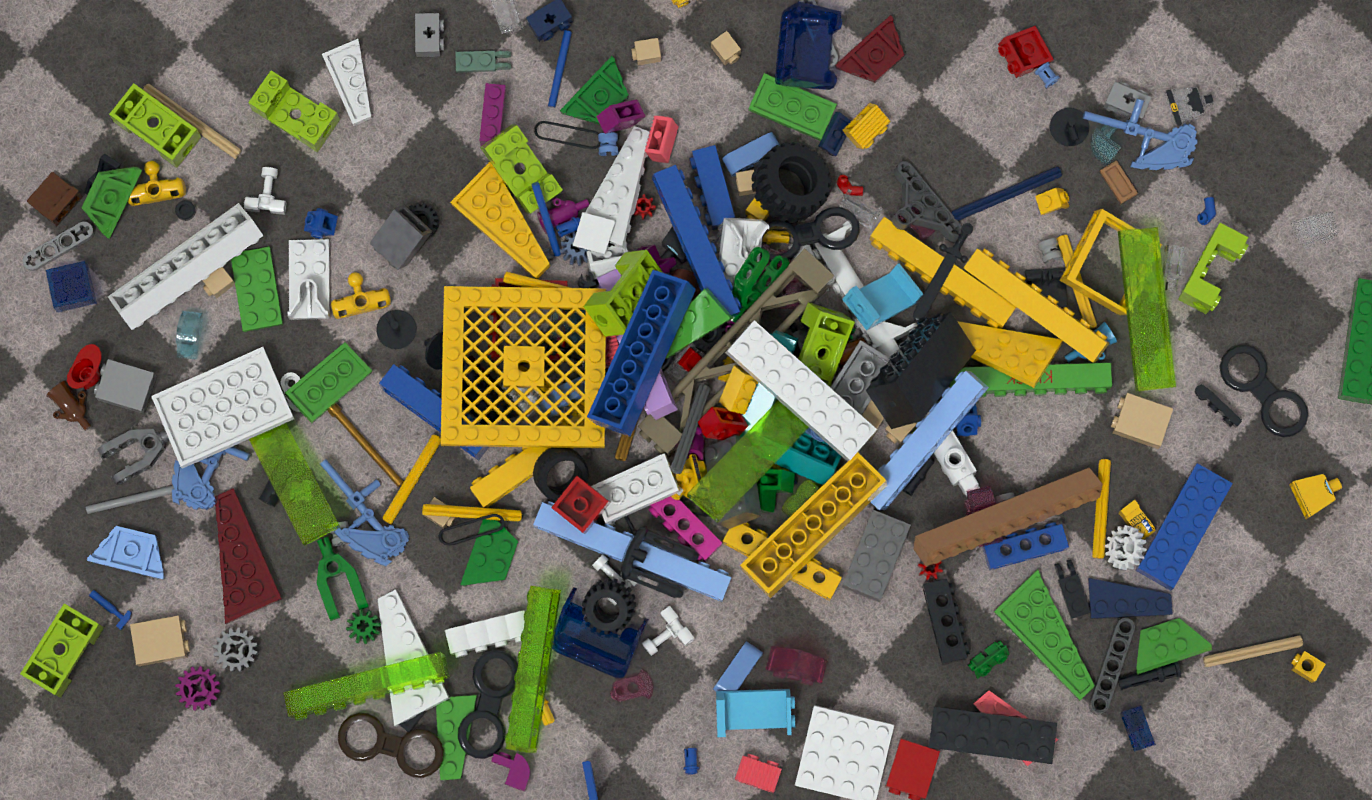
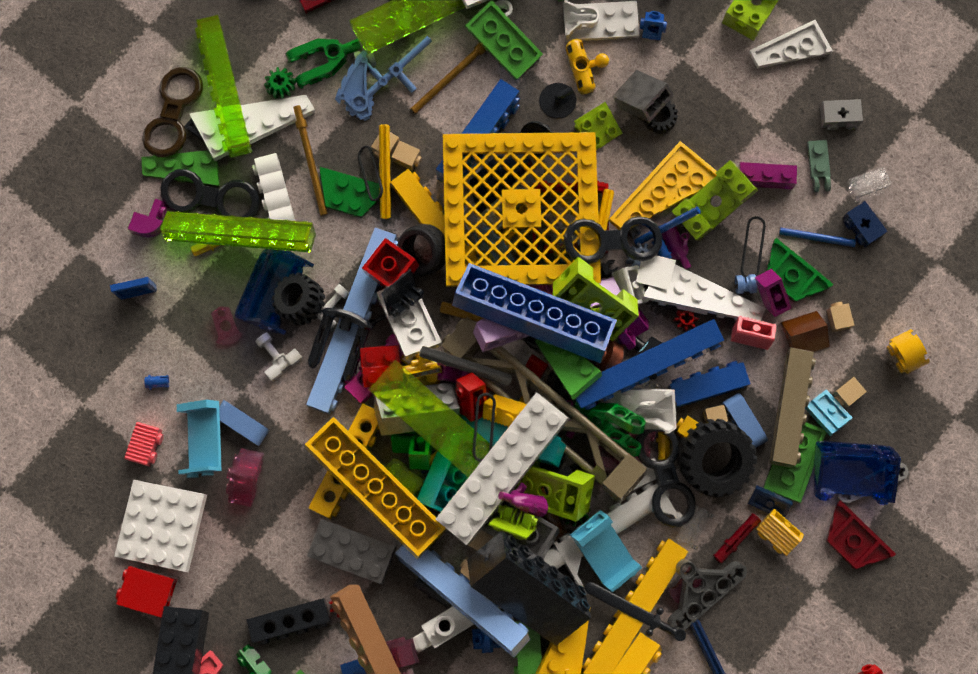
camera: 90 degrees right, 0 degrees up
(412, 479) = (412, 117): yellow axle -> none
(414, 602) = (301, 125): none -> pearl gold bar
(428, 286) = (601, 122): none -> lime hinge
(453, 490) = (407, 156): none -> tan brick
(561, 273) = (613, 239): none -> black bar
(613, 490) = (401, 294): none -> black hinge
(662, 87) = (807, 332): none -> reddish brown slope
(685, 520) = (375, 361): none -> red plate
(740, 105) = (791, 408): none -> dark tan brick
(746, 70) = (828, 412): none -> medium azure plate
(754, 417) = (476, 422): none -> black piece
(835, 369) = (526, 502): none -> magenta piece
(843, 184) = (719, 512): red arm -> none
(863, 375) = (519, 529): none -> lime hinge
(871, 169) = (730, 545): none -> dark red pin

